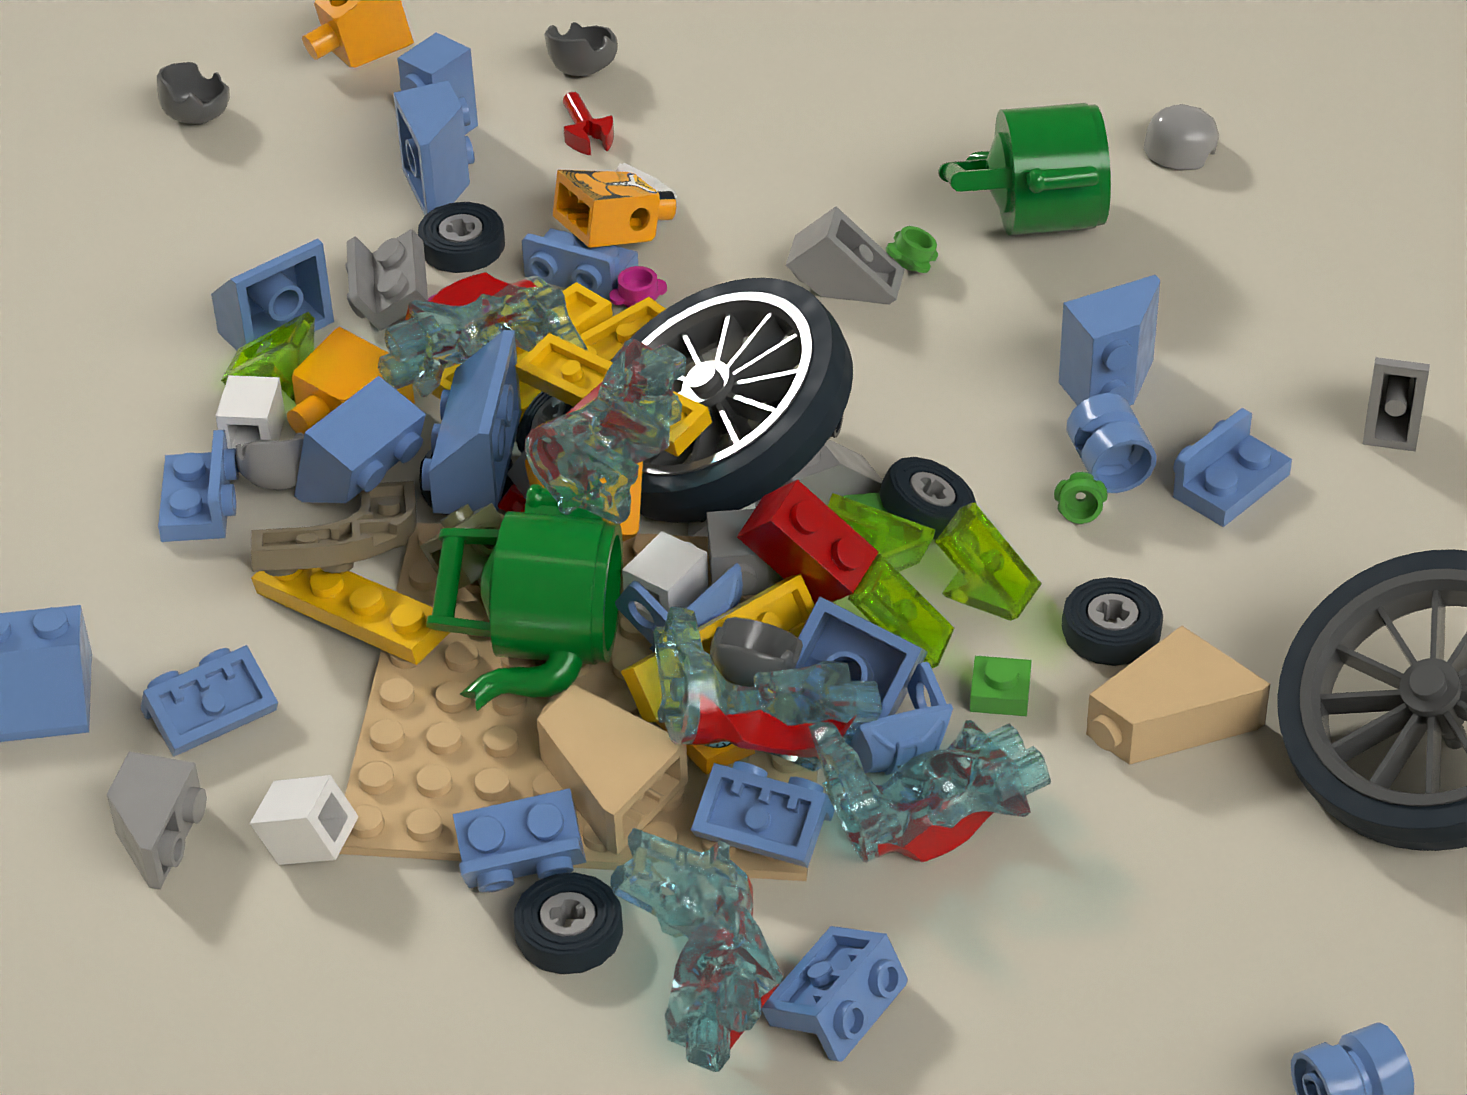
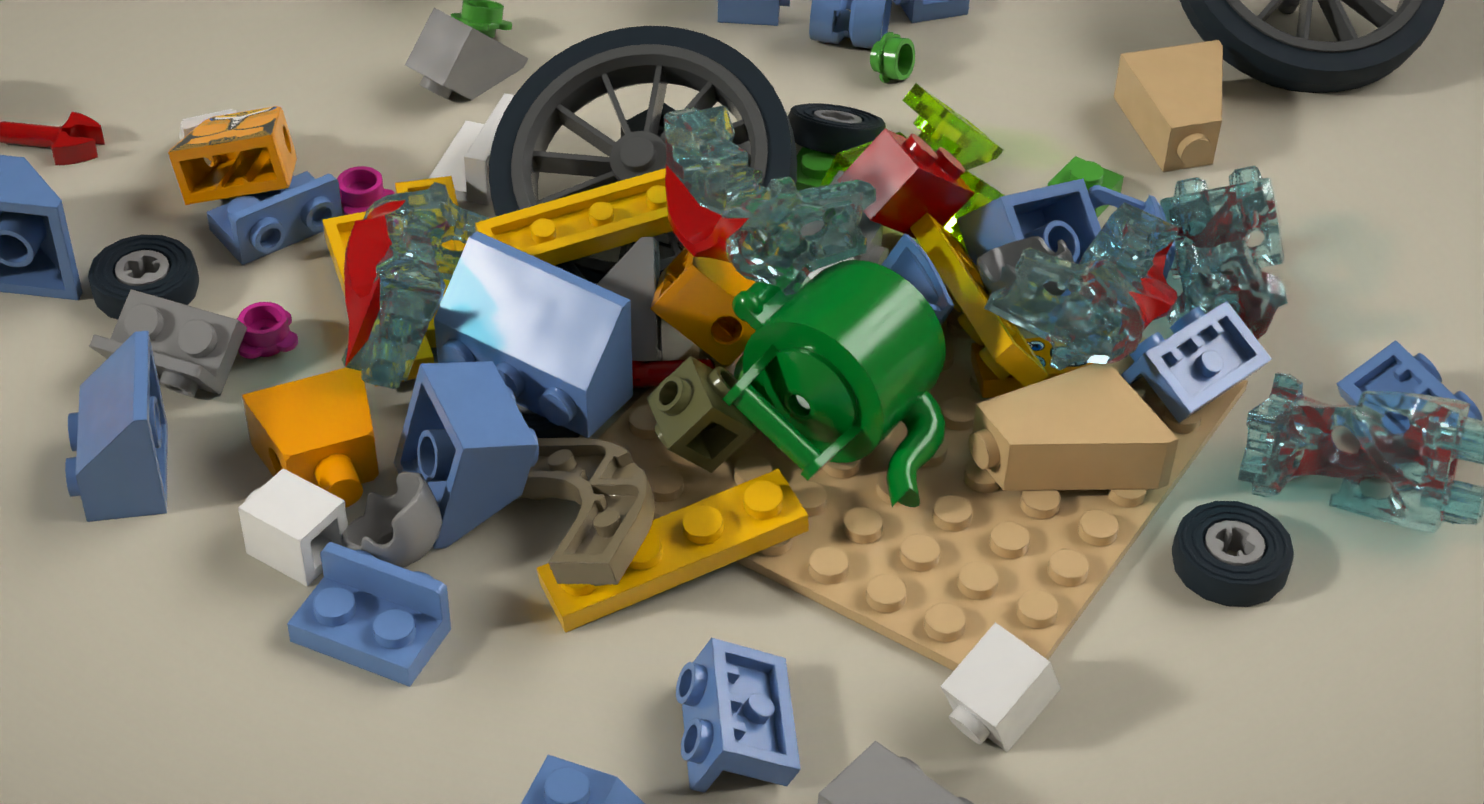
camera: 65 degrees left, 0 degrees up
(276, 353) = (229, 456): clear neon green slope -> none
(519, 840) = (1126, 540): medium blue bracket -> none
(1108, 643) = (1051, 102): black bush -> none

